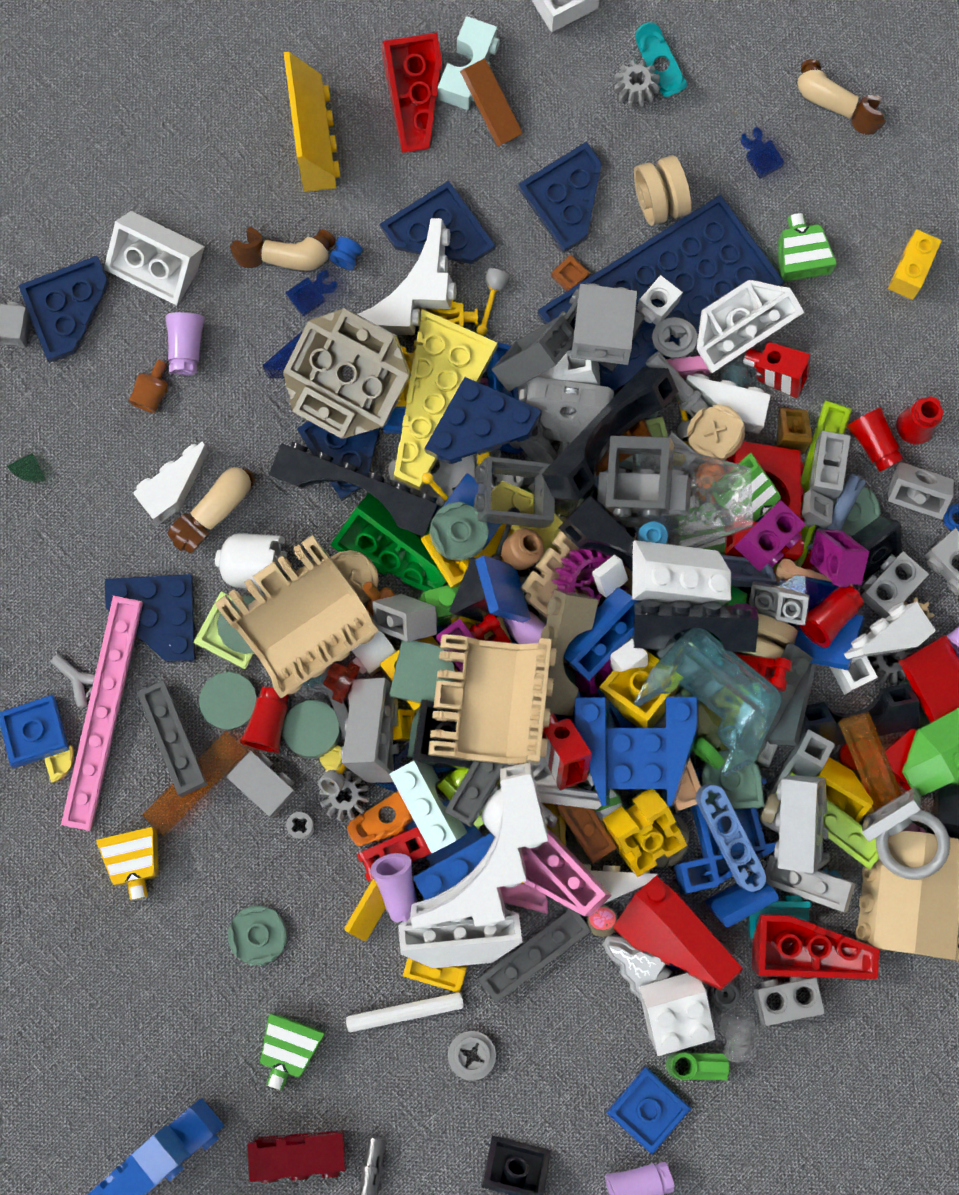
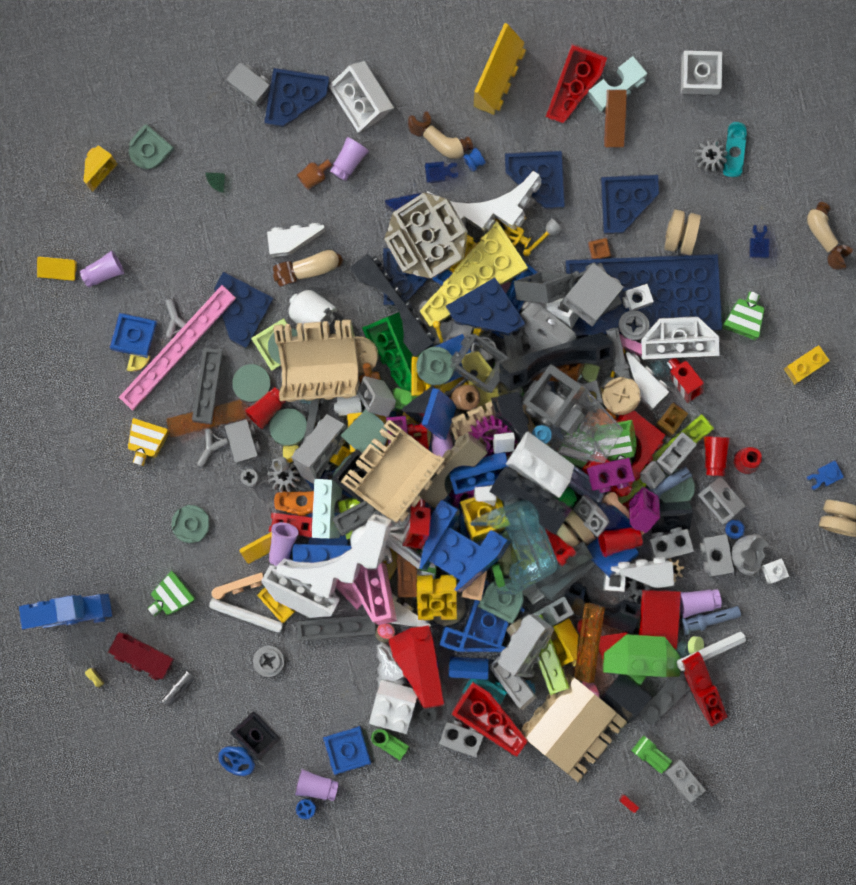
camera: 40 degrees right, 5 degrees up
(223, 816) = (210, 446): none -> light grey piece
(341, 680) = (320, 410): clear red tile -> none
(371, 980) = (237, 586): none -> light nougat plate
(728, 839) = (482, 629): medium blue beam -> none
(738, 1036) = (420, 740): clear plate -> none
(895, 818) = (580, 674): light grey tile -> none

